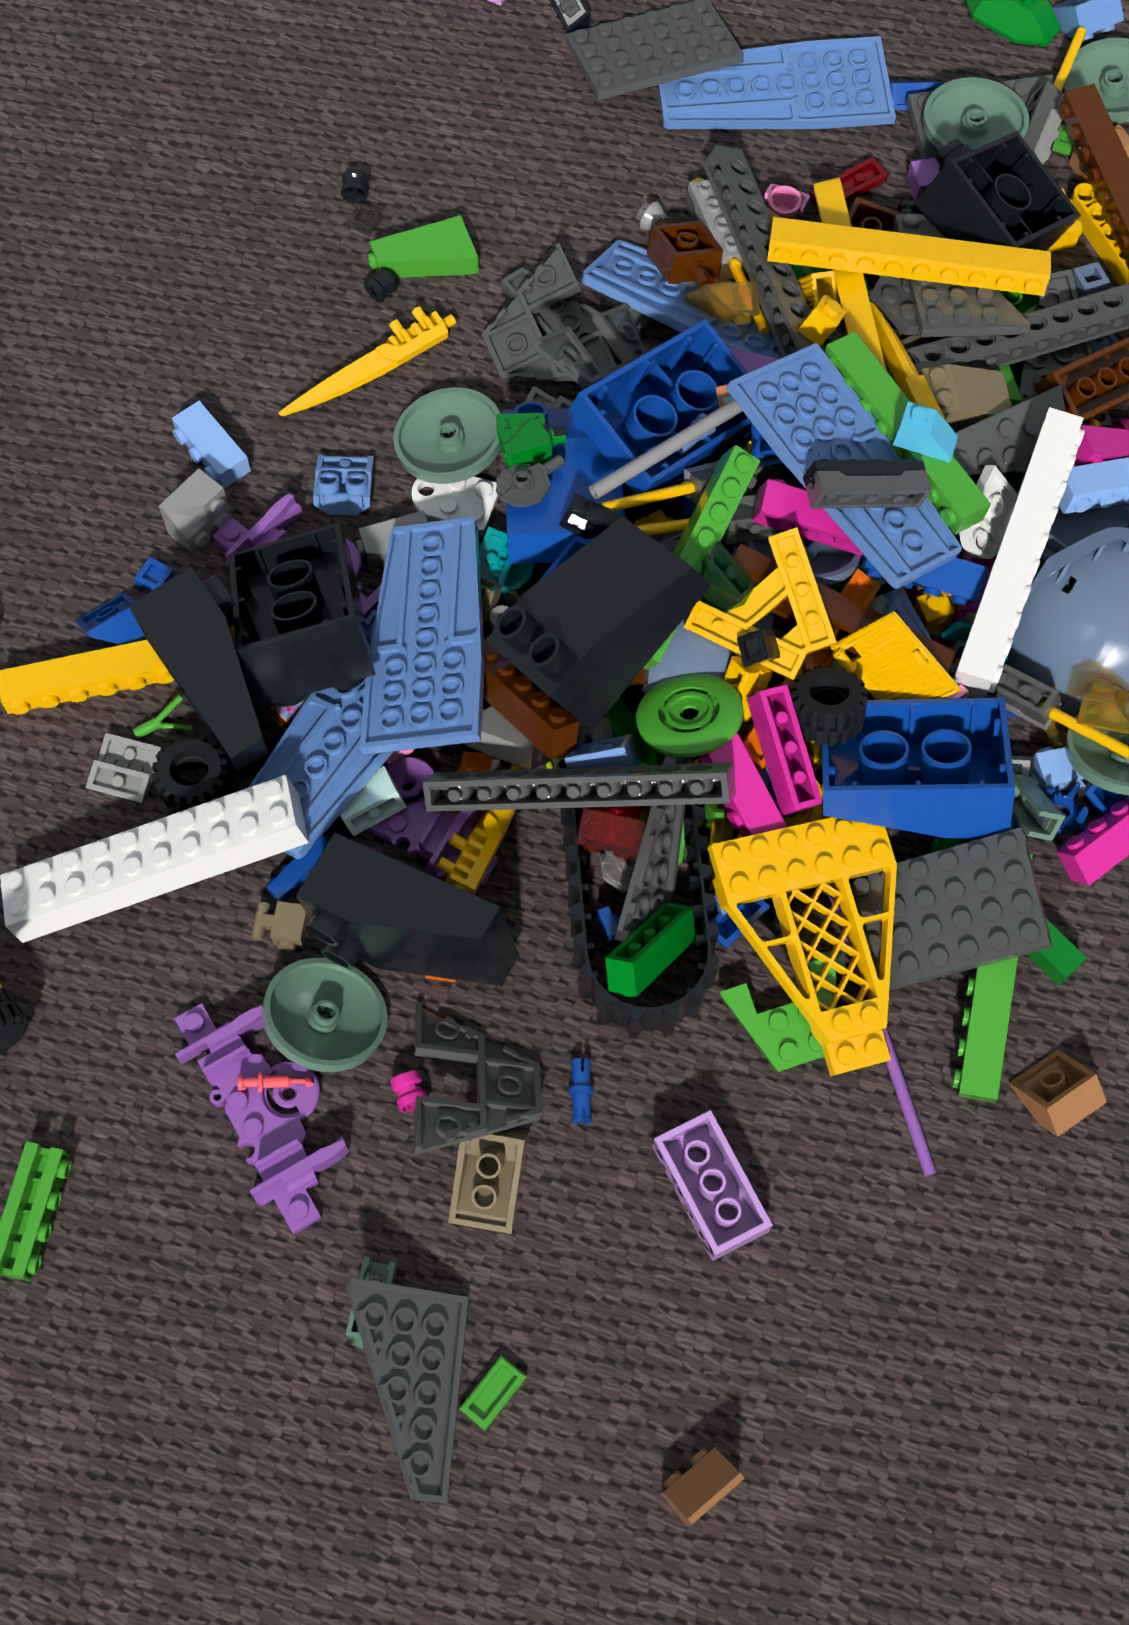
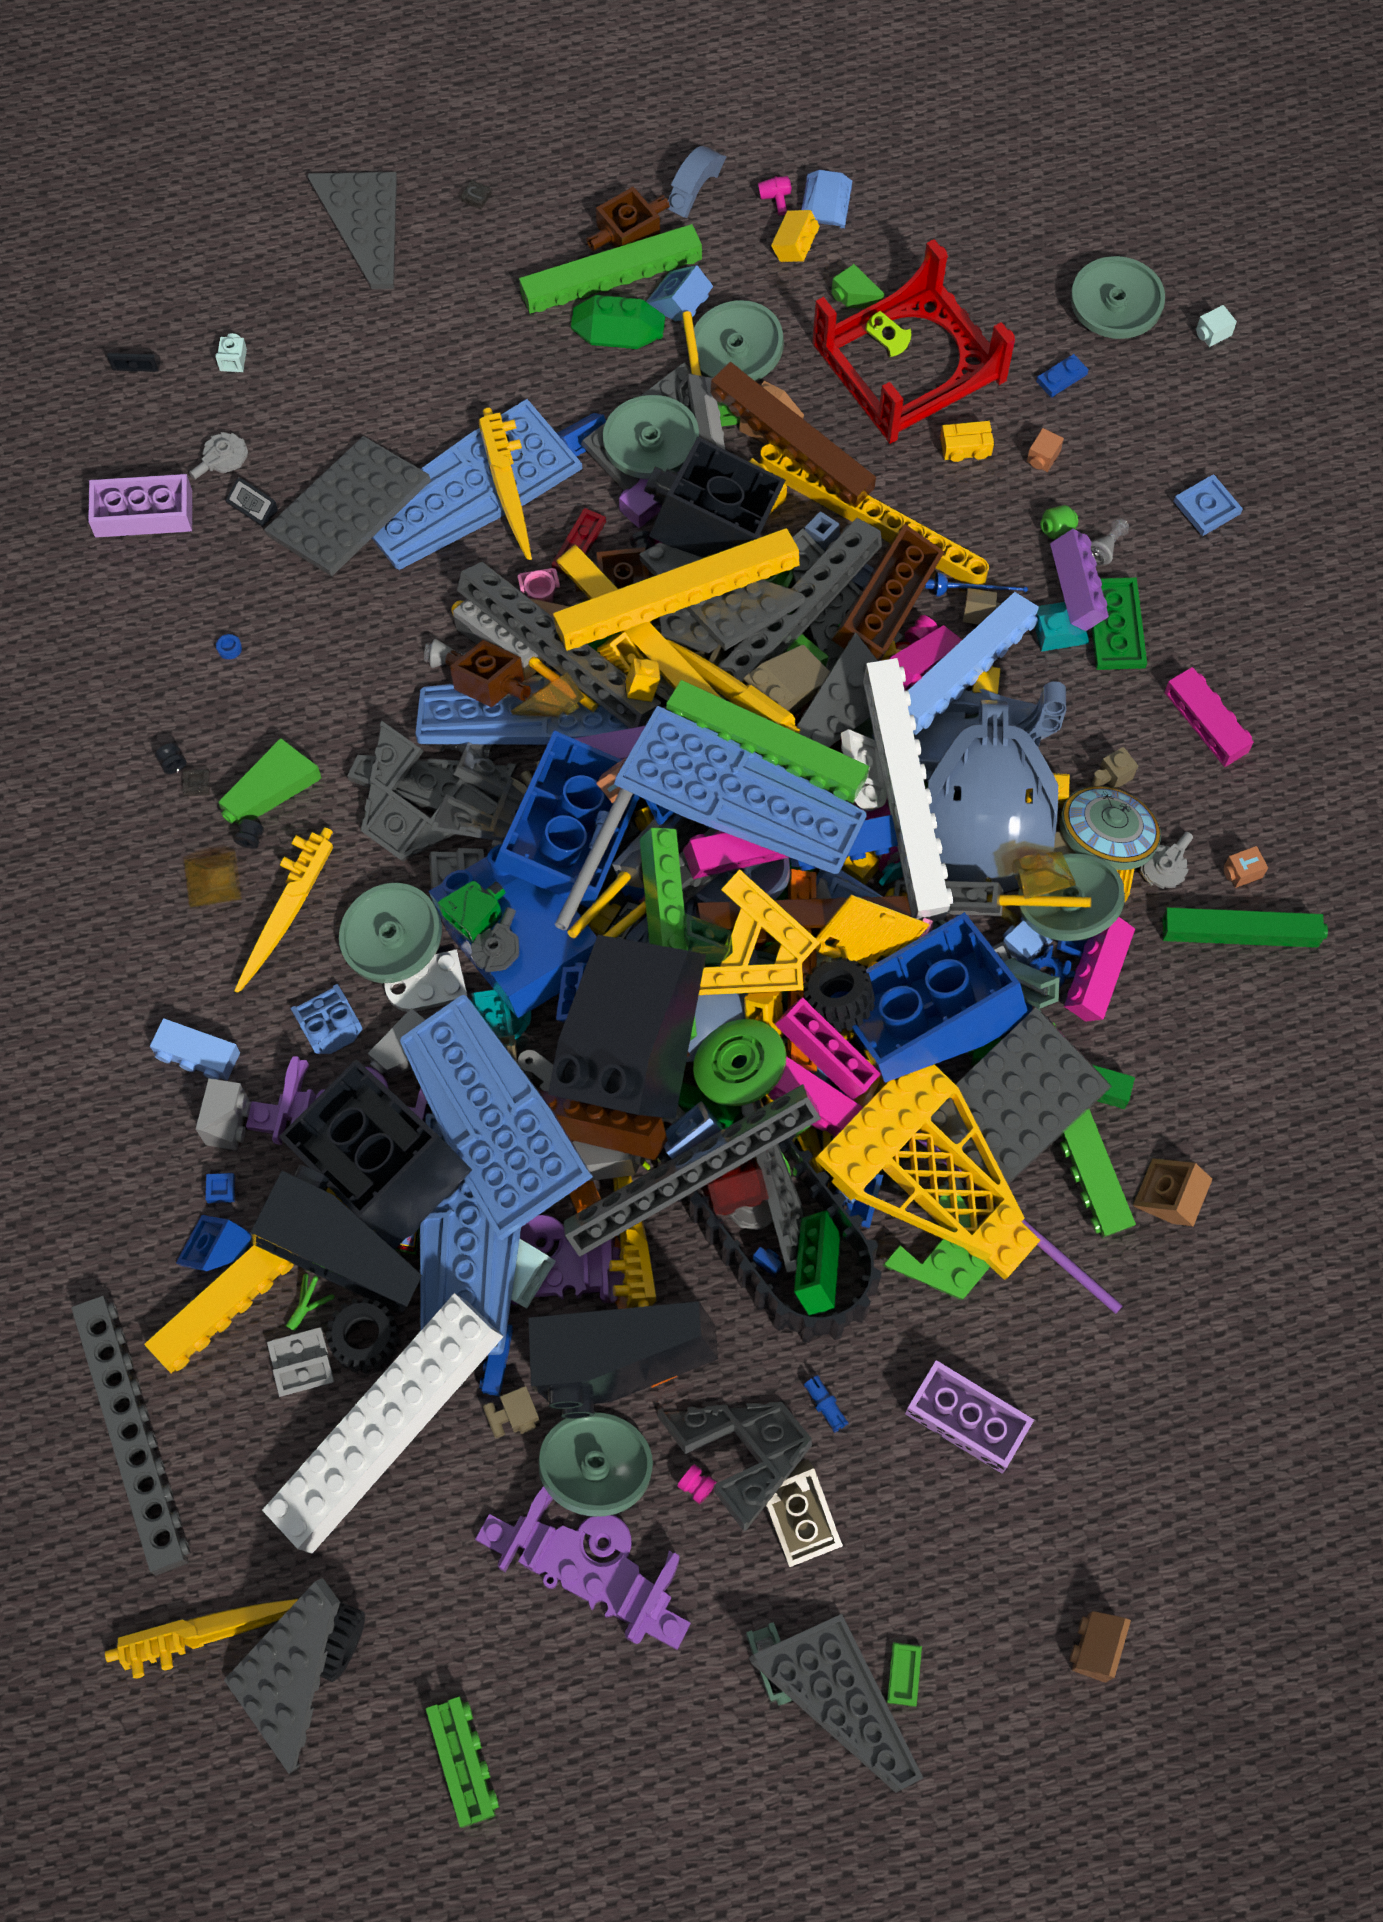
camera: 30 degrees left, 0 degrees up
(271, 1081) = (586, 1542): coral piece -> none
(324, 309) = (212, 879): none -> clear yellow slope
(469, 119) = (229, 646): none -> blue tile
(587, 517) = (569, 948): black slope -> none
(758, 647) = (762, 980): black slope -> none
(819, 73) = (500, 460): none -> yellow piece
(867, 483) = (769, 803): dark grey piece -> none
(925, 433) = (787, 737): medium azure slope -> none

